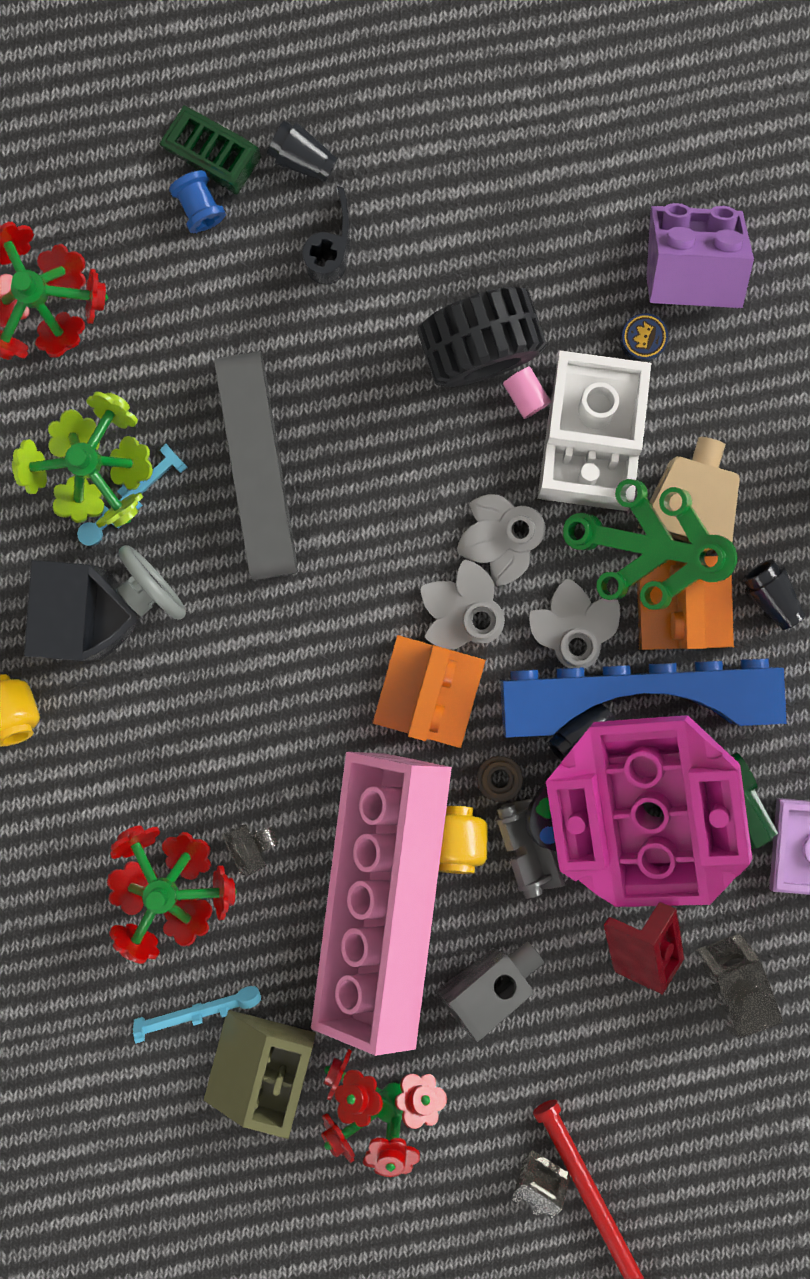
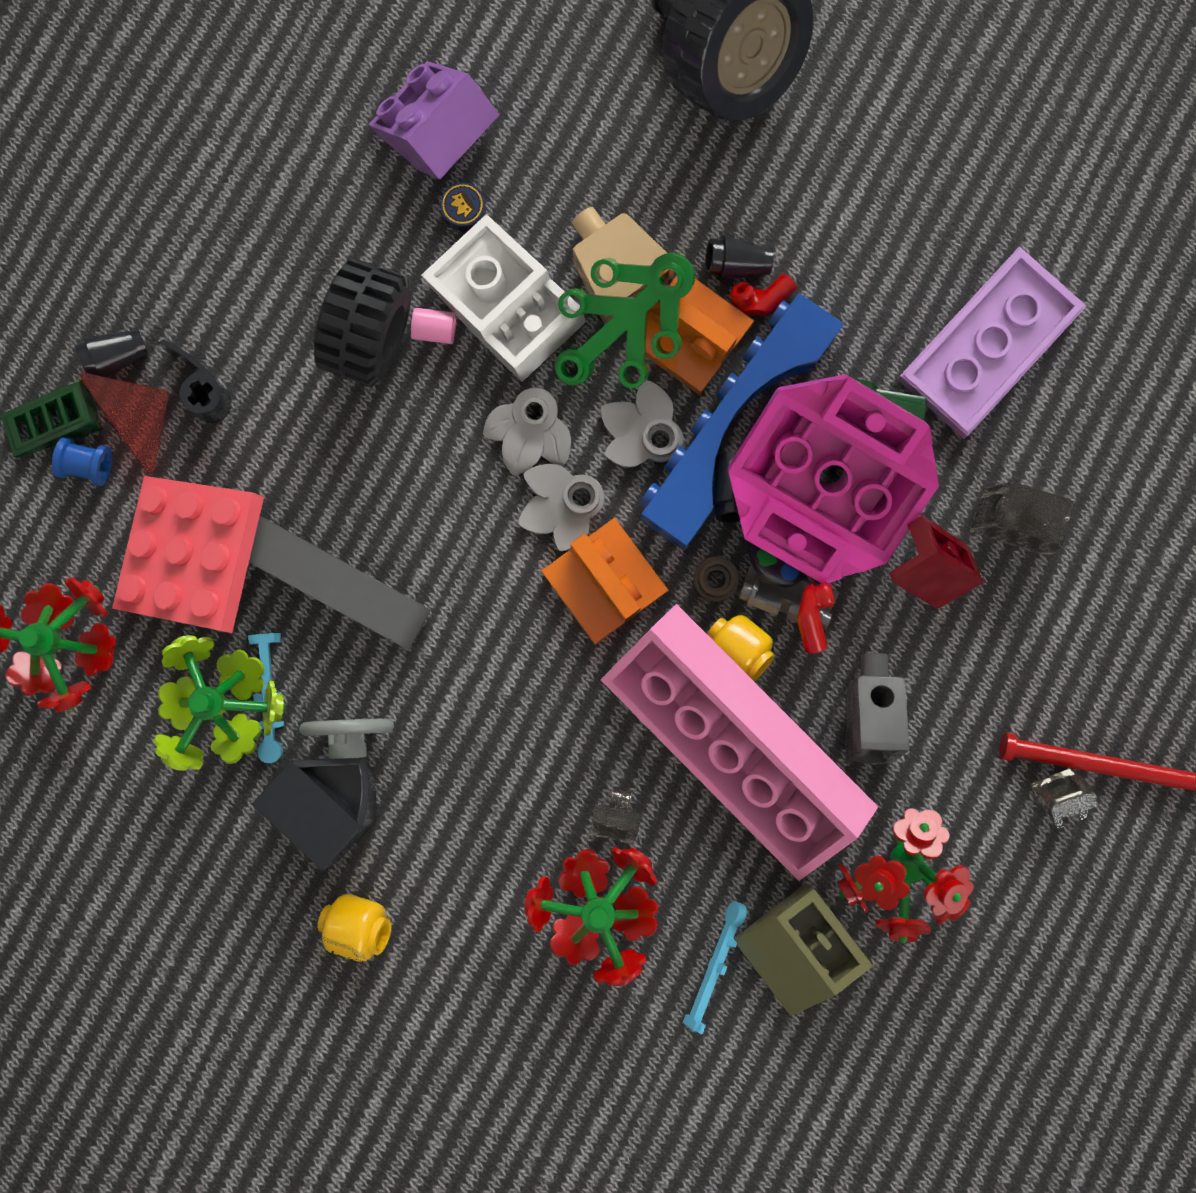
camera: 55 degrees left, 5 degrees down
(190, 347) = (188, 553): none -> coral plate
(267, 211) = (133, 412): none -> clear red tile
(524, 879) = (809, 616): none -> red arm
(755, 640) = (760, 301): none -> red arm

